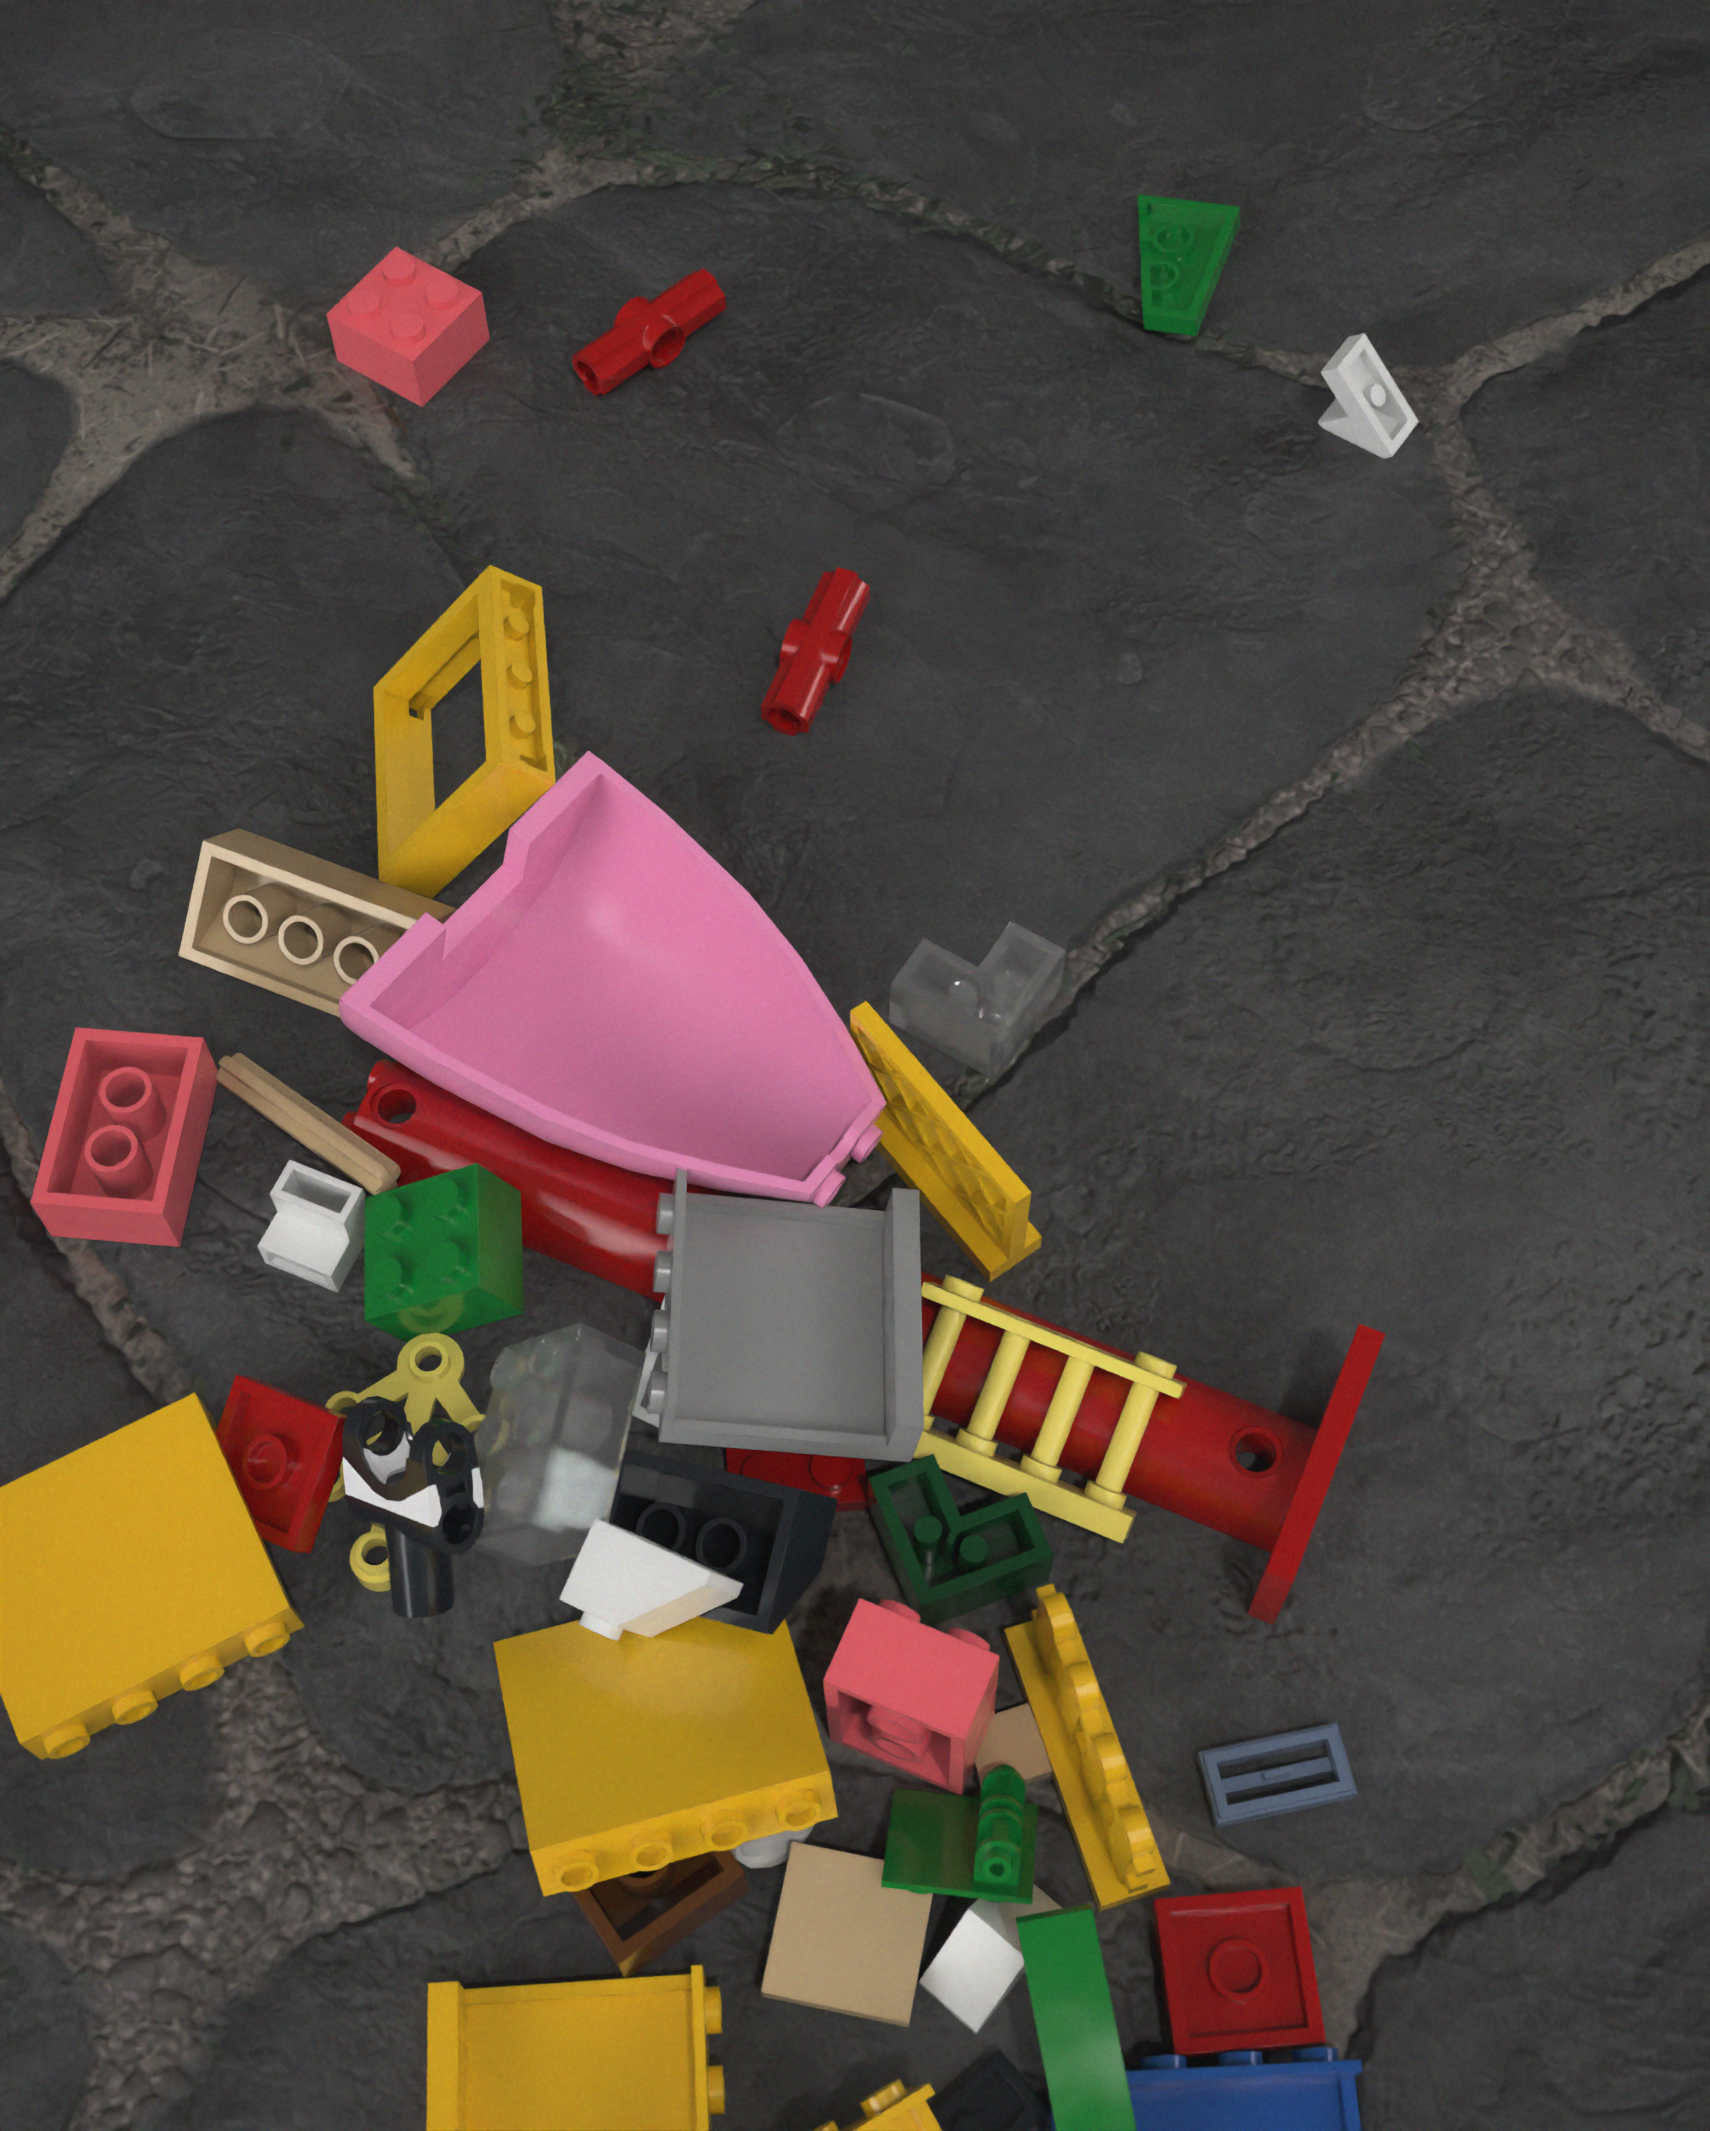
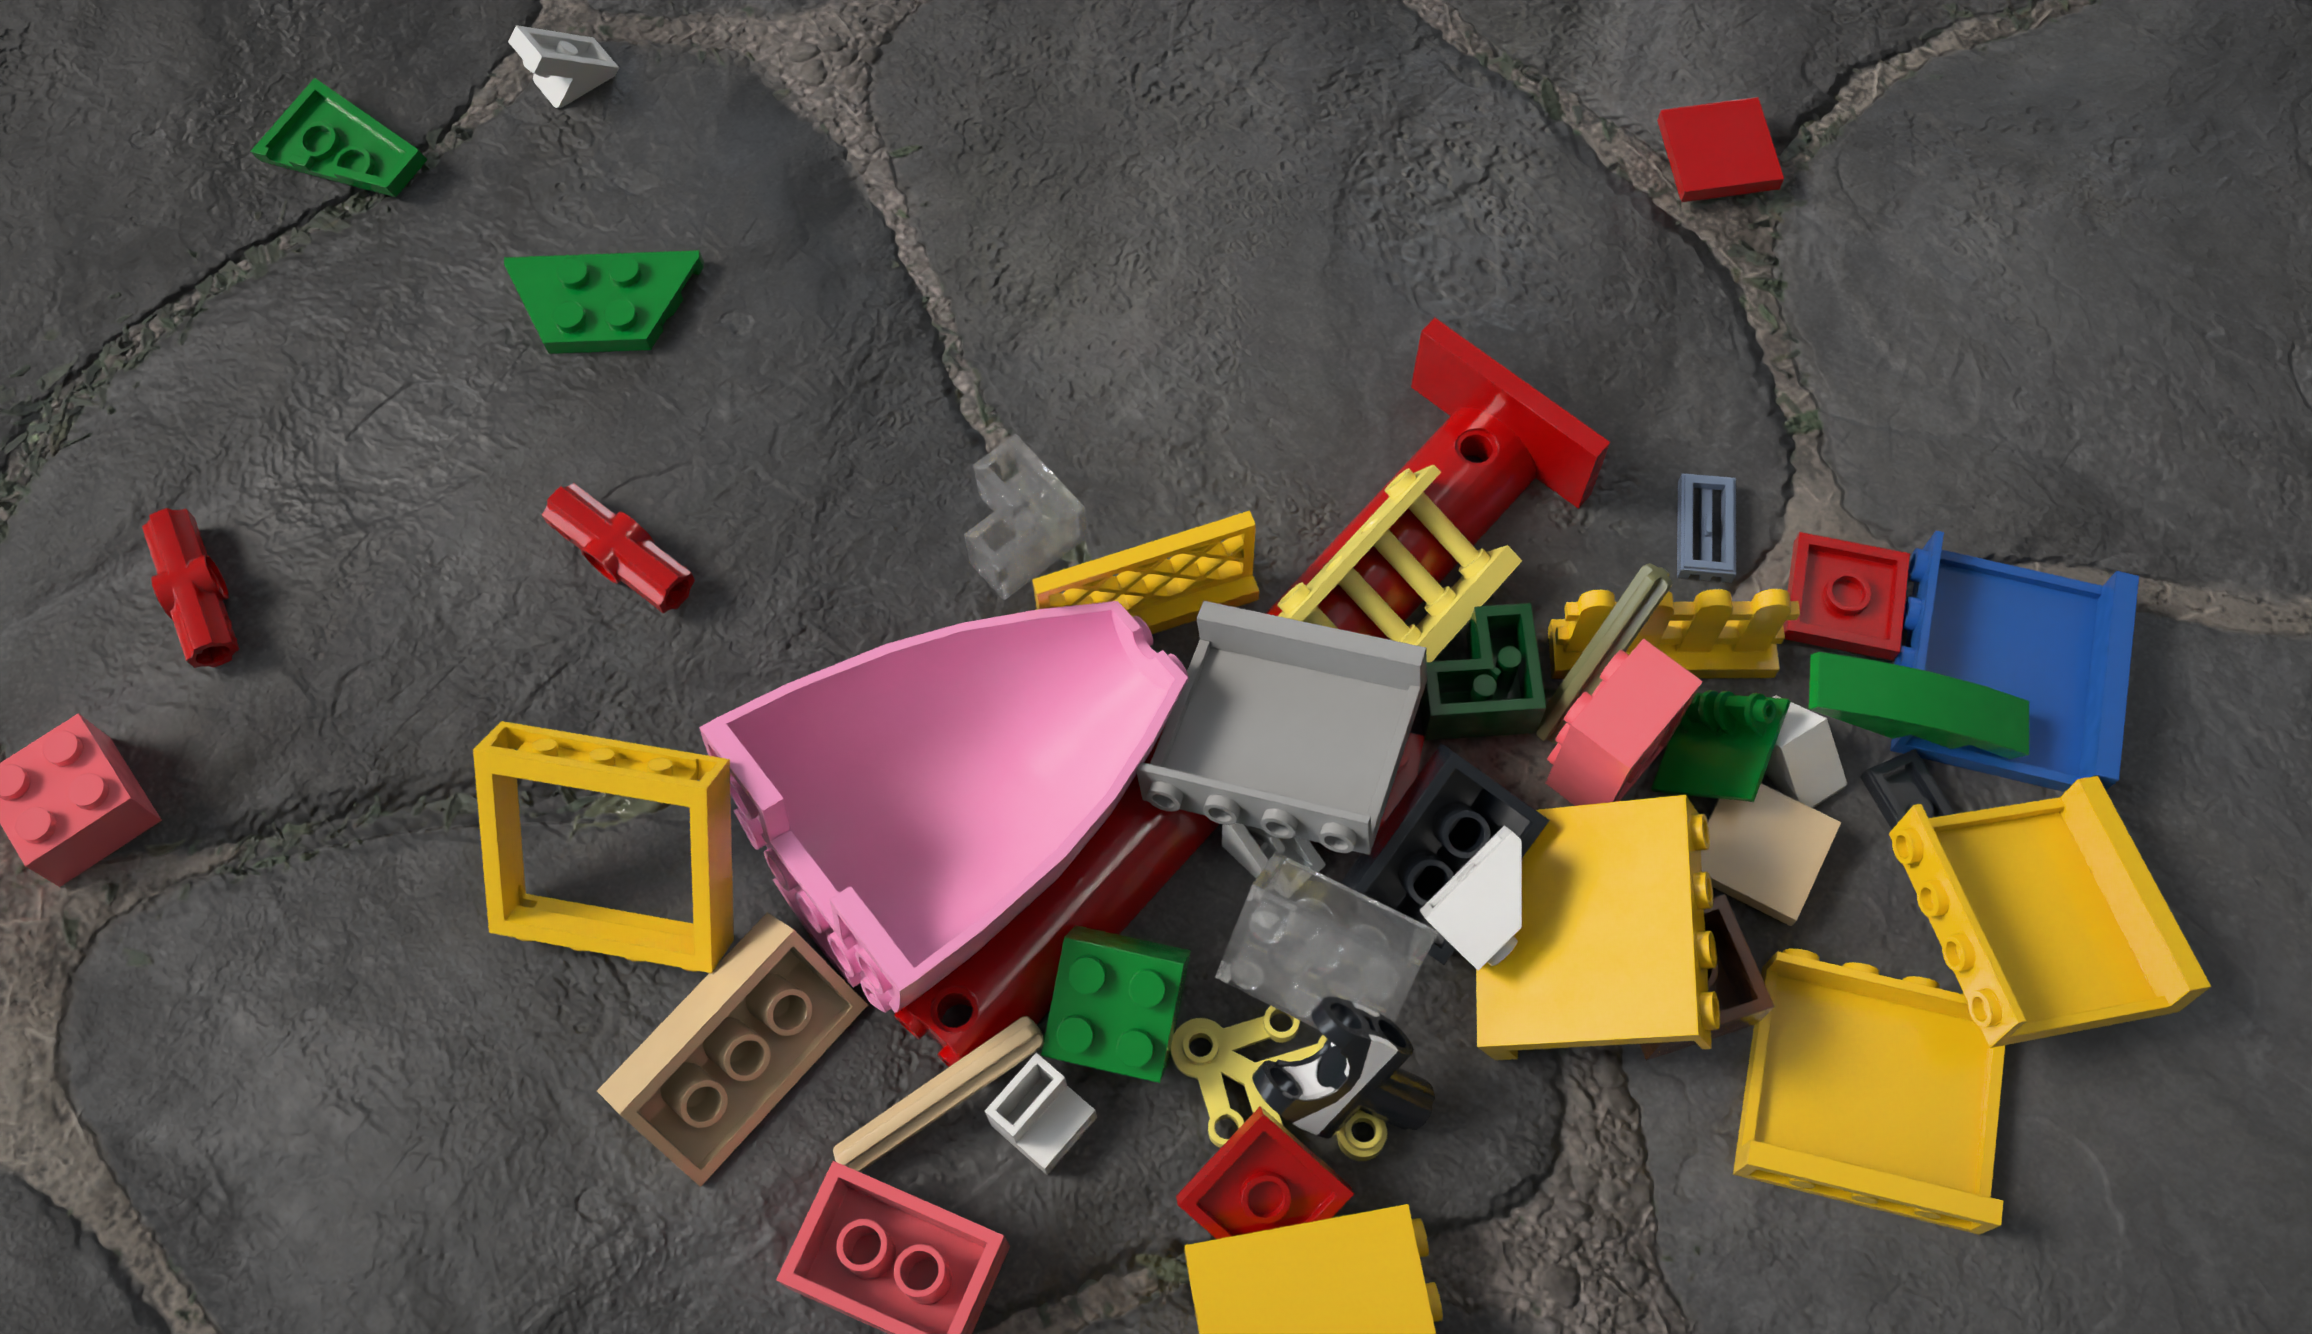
camera: 70 degrees left, 5 degrees up
(1038, 1645) = (1615, 633): none -> olive axle
(1102, 540) = (602, 298): none -> green wing

